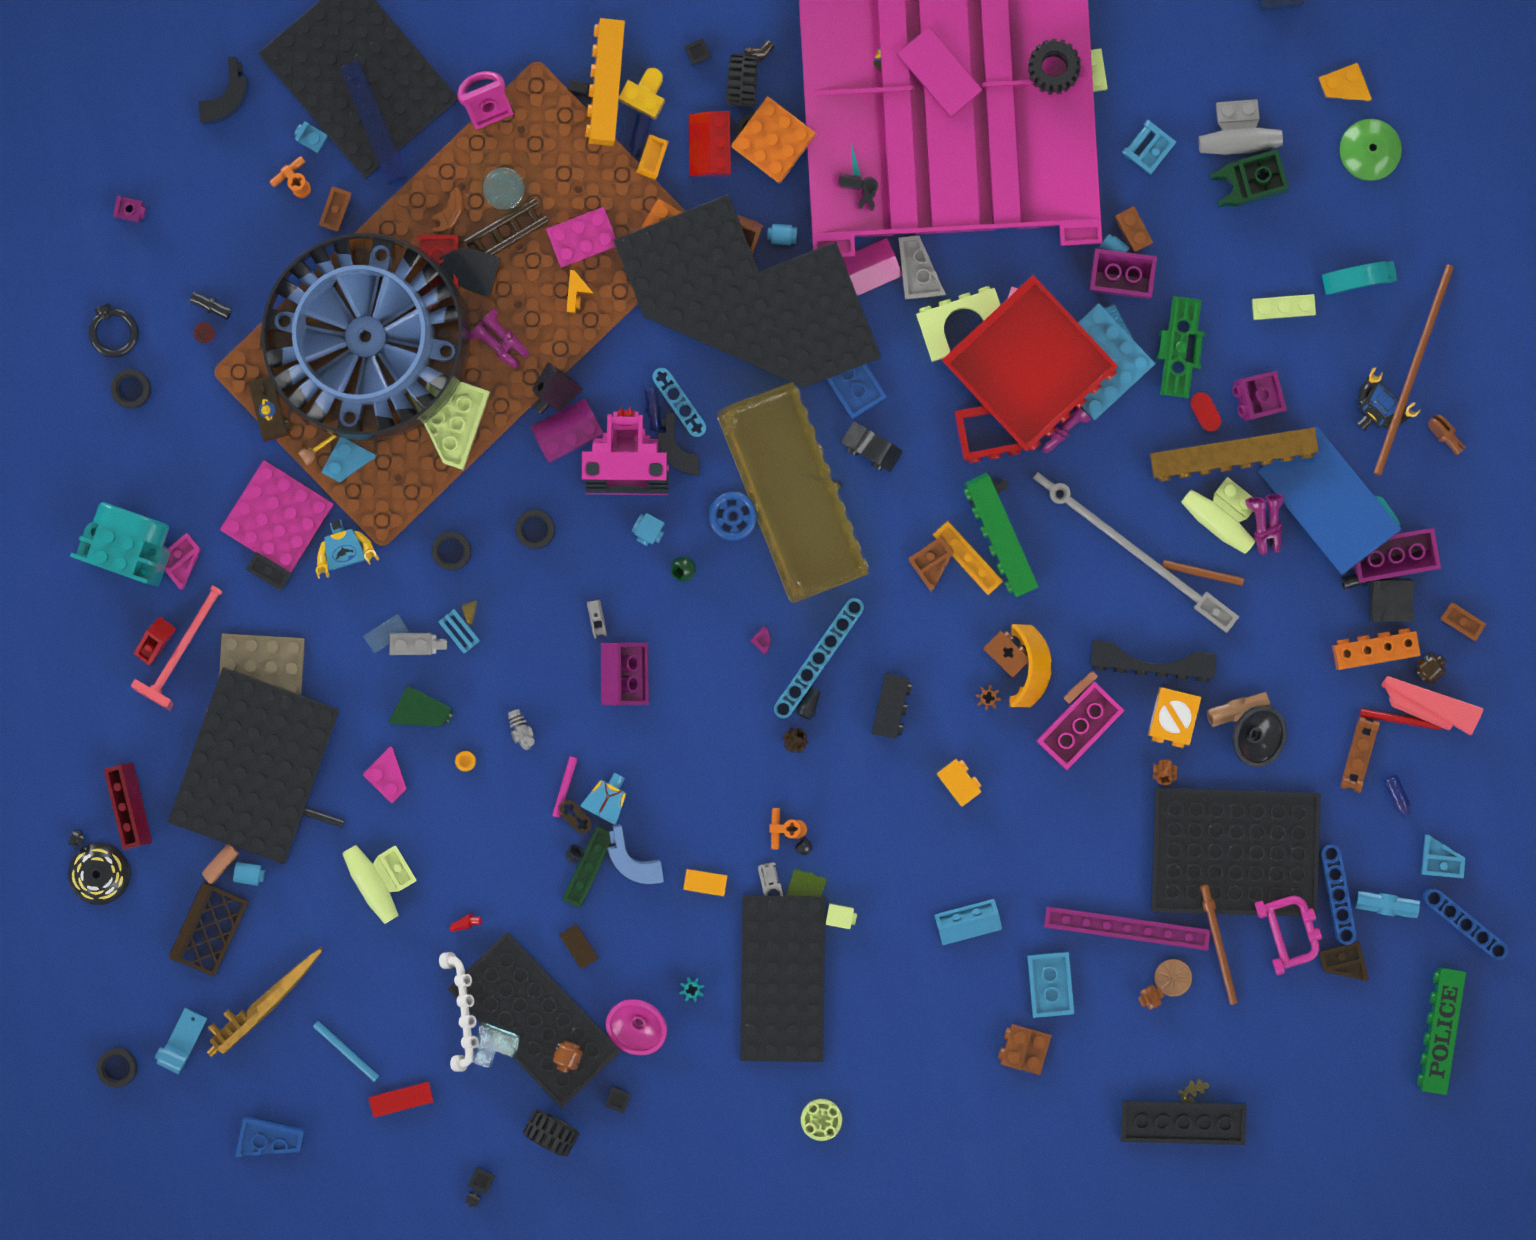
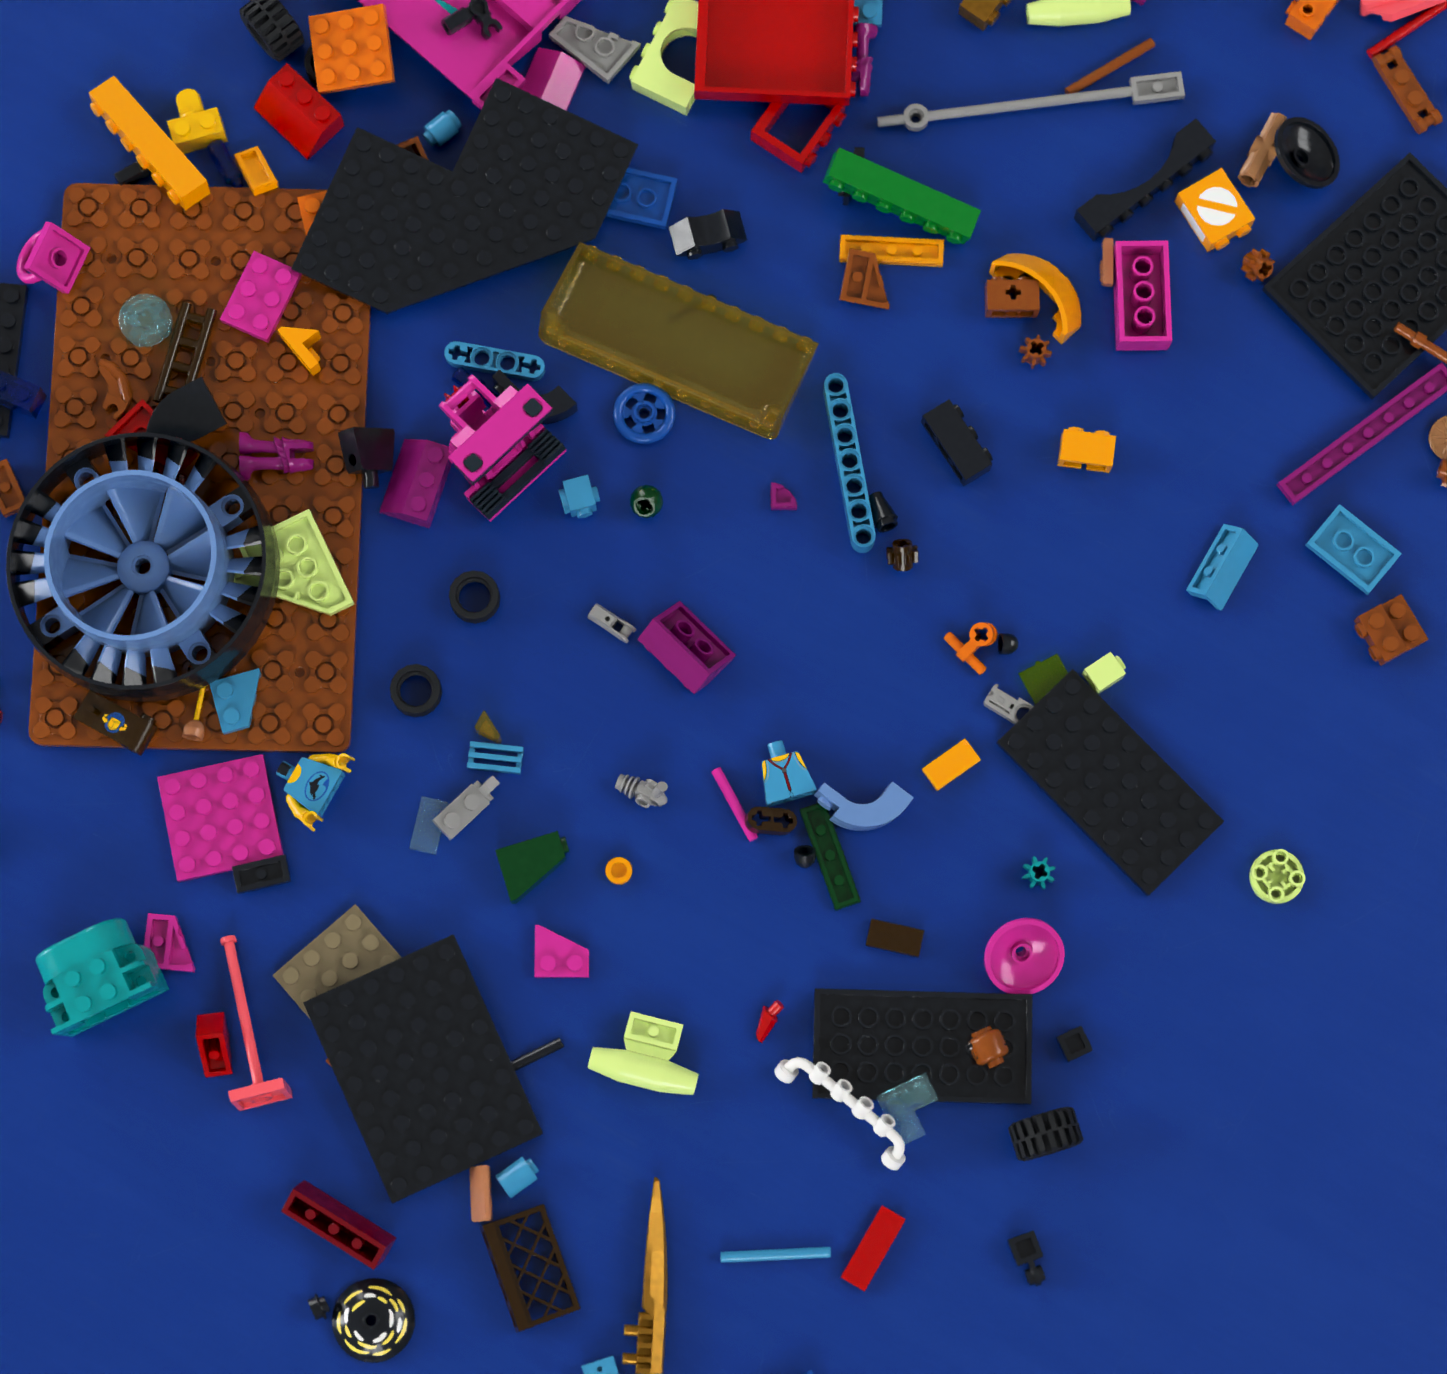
camera: 45 degrees left, 10 degrees down
(697, 52) = (208, 45): black plate -> none

